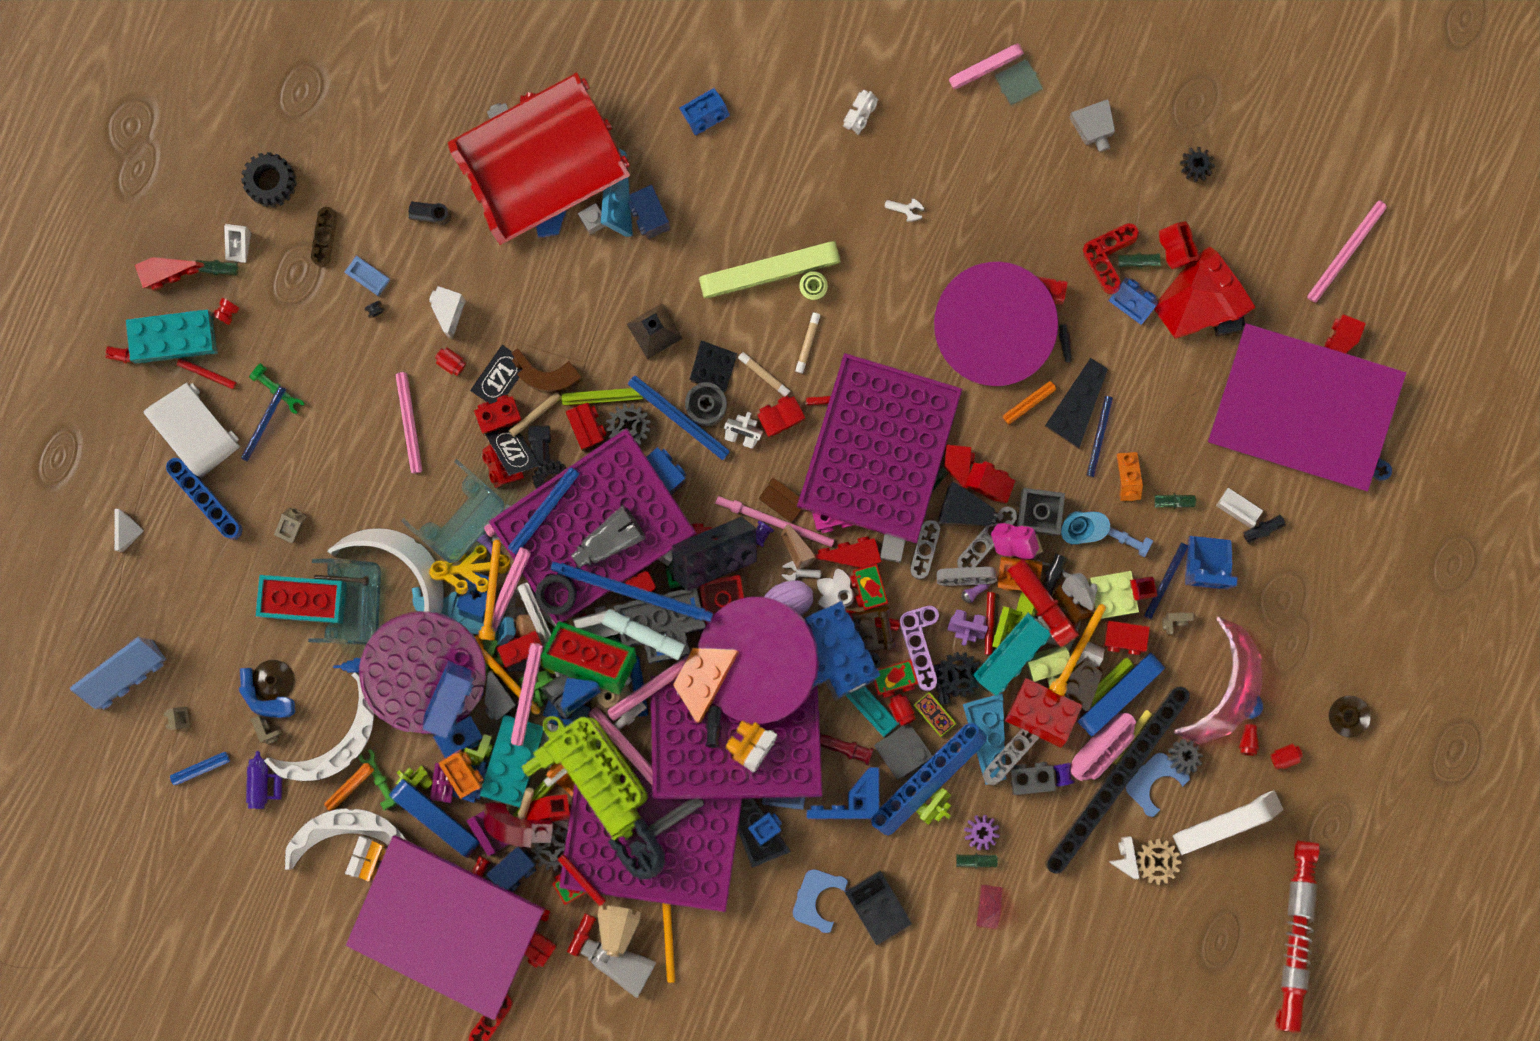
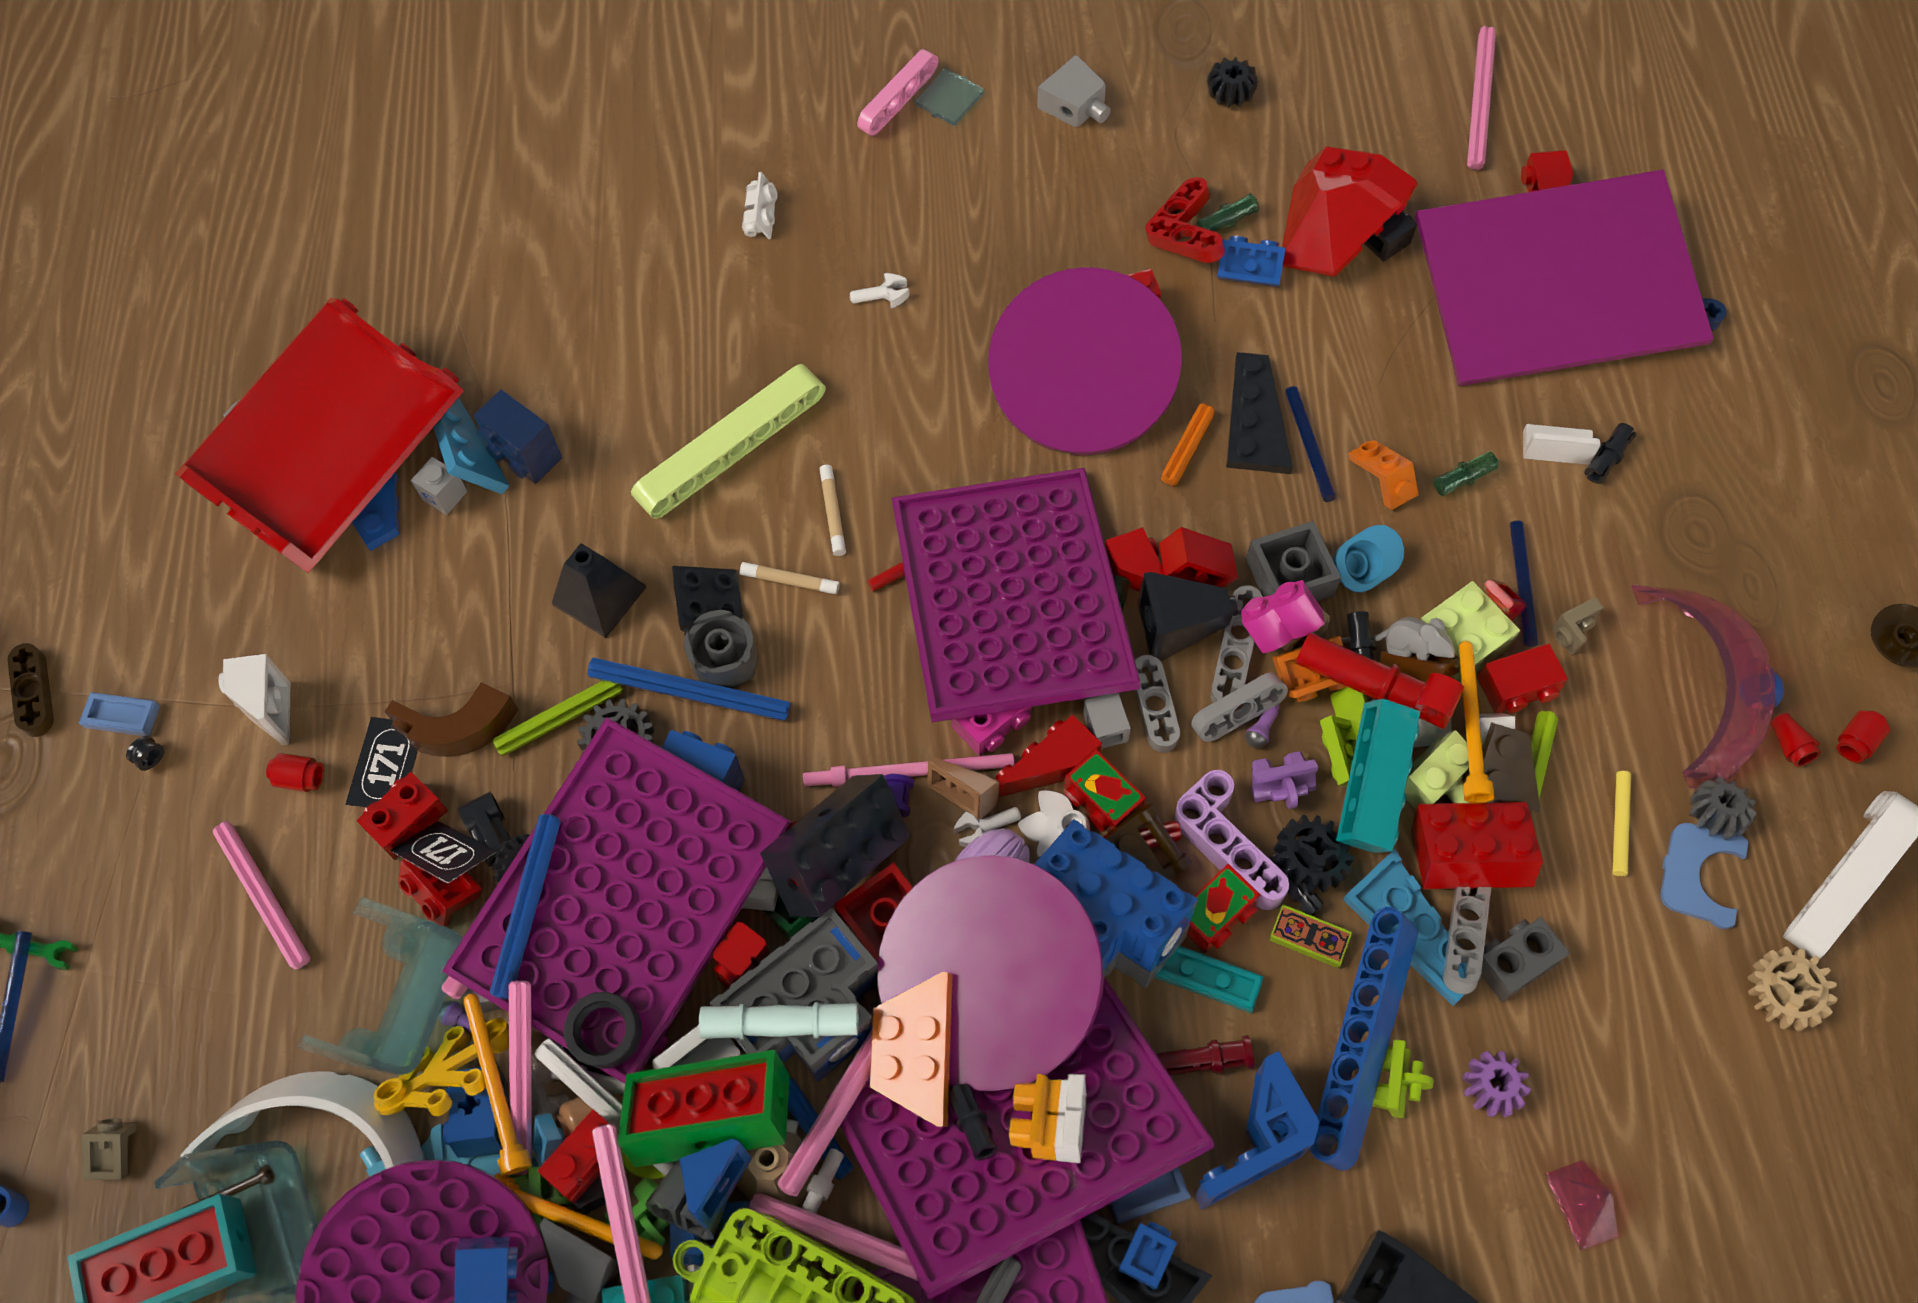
camera: 25 degrees left, 20 degrees down
(427, 212) = (194, 580): black piece -> none
(535, 414) = (461, 788): tan bar -> none
(585, 426) = (542, 761): red brick -> none
(612, 536) = (654, 890): dark grey piece -> none
(631, 591) = (728, 962): blue piece -> none
(704, 111) = (545, 294): blue bracket -> none
(734, 427) = (811, 662): white hips -> none
(780, 416) = (842, 619): red brick -> none
(781, 500) = (903, 732): reddish brown panel -> none
(813, 279) = (802, 429): yellowish green cone -> none
(902, 710) = (1257, 951): red brick -> none
(903, 751) = (1297, 1016): dark grey slope -> none
(976, 860) = (1516, 1136): clear green axle -> none
(990, 614) = (1304, 746): red bar -> none
(1063, 774) = (1564, 926): dark purple bush -> none
(1064, 337) = (1194, 355): black animal -> none
(1104, 747) = (1595, 853): bright pink brick -> none
(1120, 768) = (1642, 909): black beam -> none
(1121, 694) = (1568, 765): blue beam -> none
(1124, 538) = (1464, 551): medium blue piece -> none
(1128, 864) = (1752, 1014): white slope -> none
(1178, 245) = (1268, 172): red brick -> none
(1209, 563) = (1578, 526): blue bracket -> none

